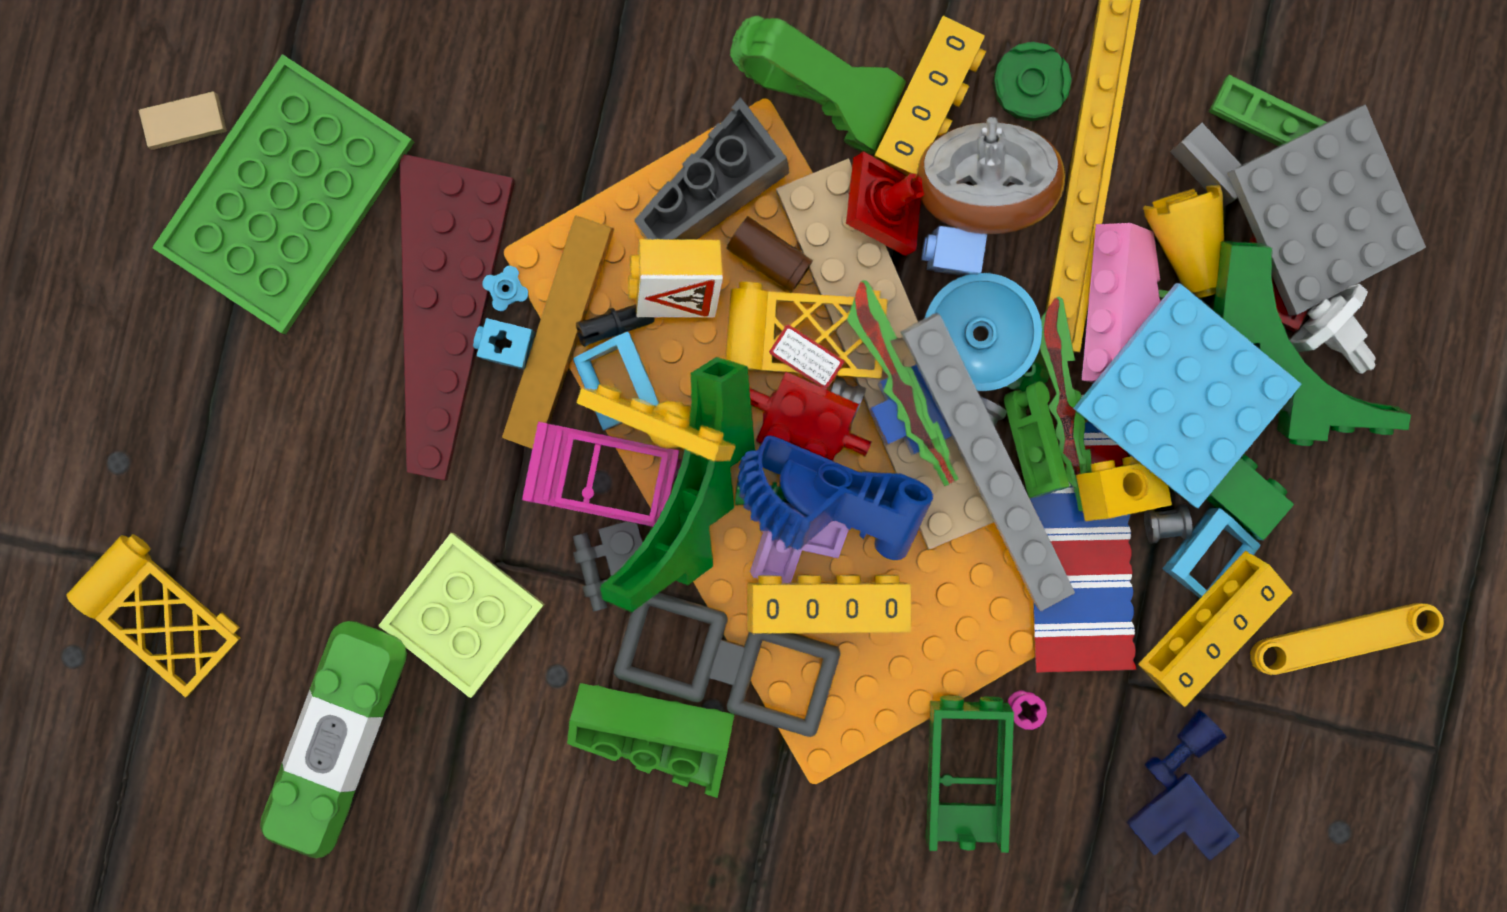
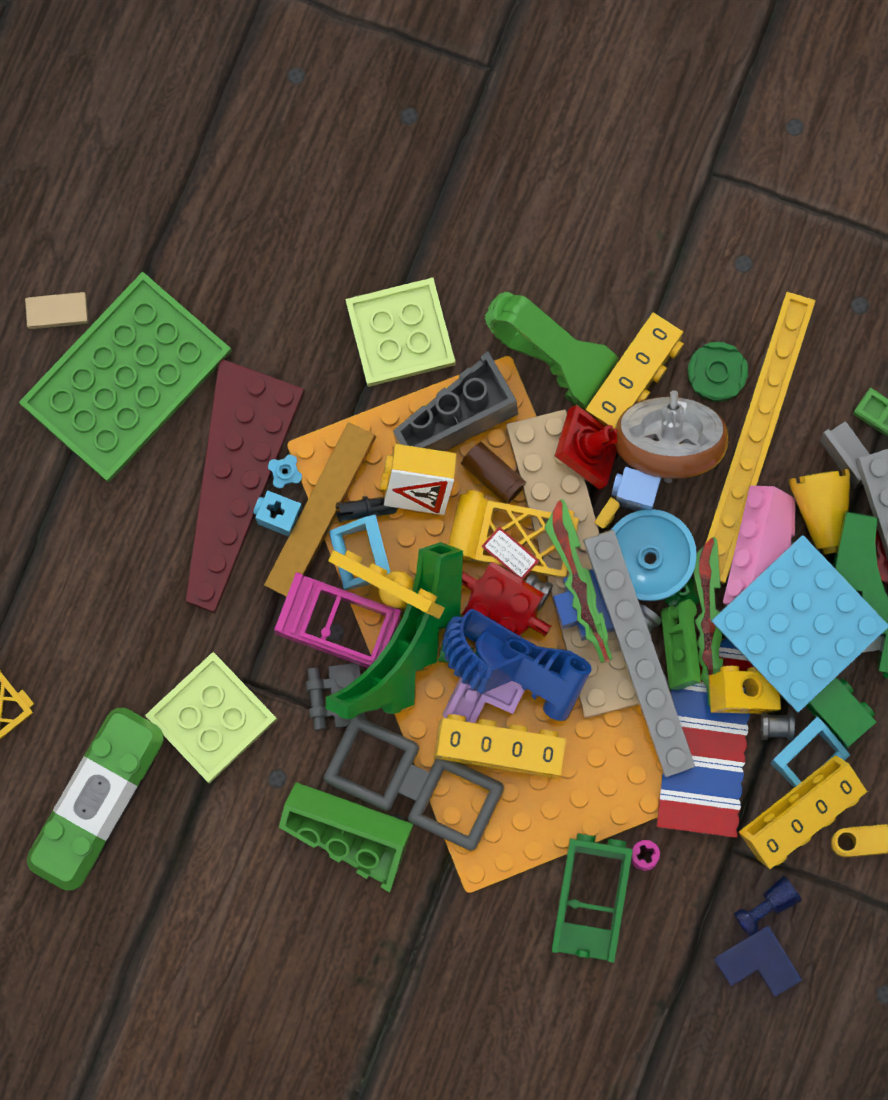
camera: 10 degrees right, 10 degrees down
(624, 86) = (400, 332): none -> yellowish green plate
(921, 286) = (607, 514): none -> yellow tile

